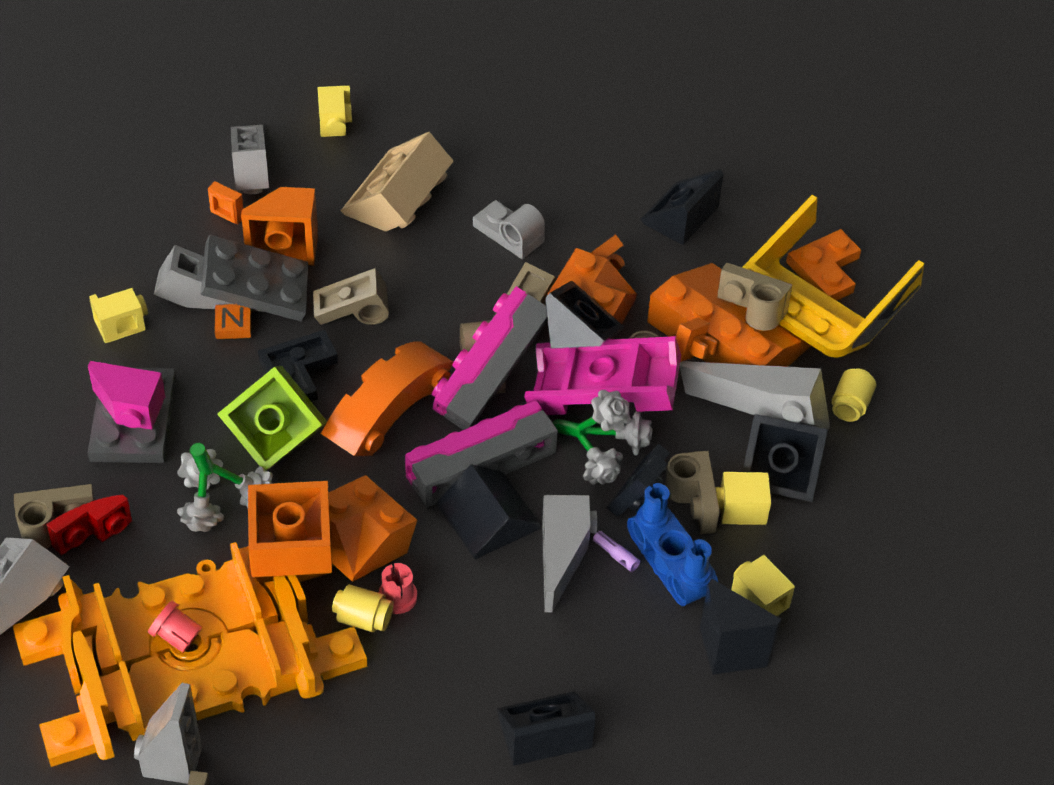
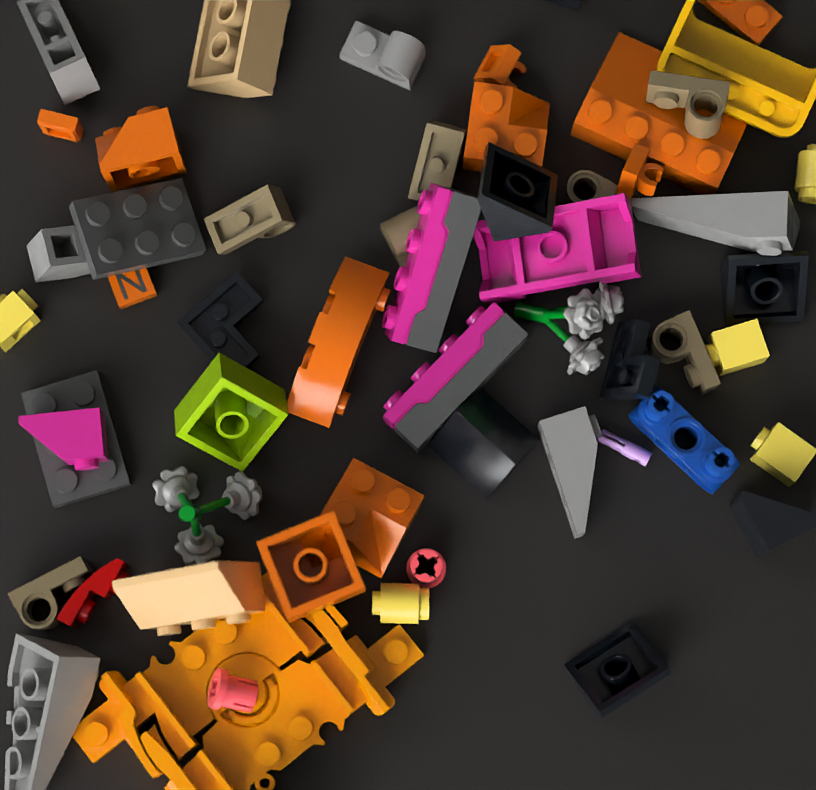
camera: 15 degrees left, 30 degrees up
(174, 528) = (193, 596): none -> slope

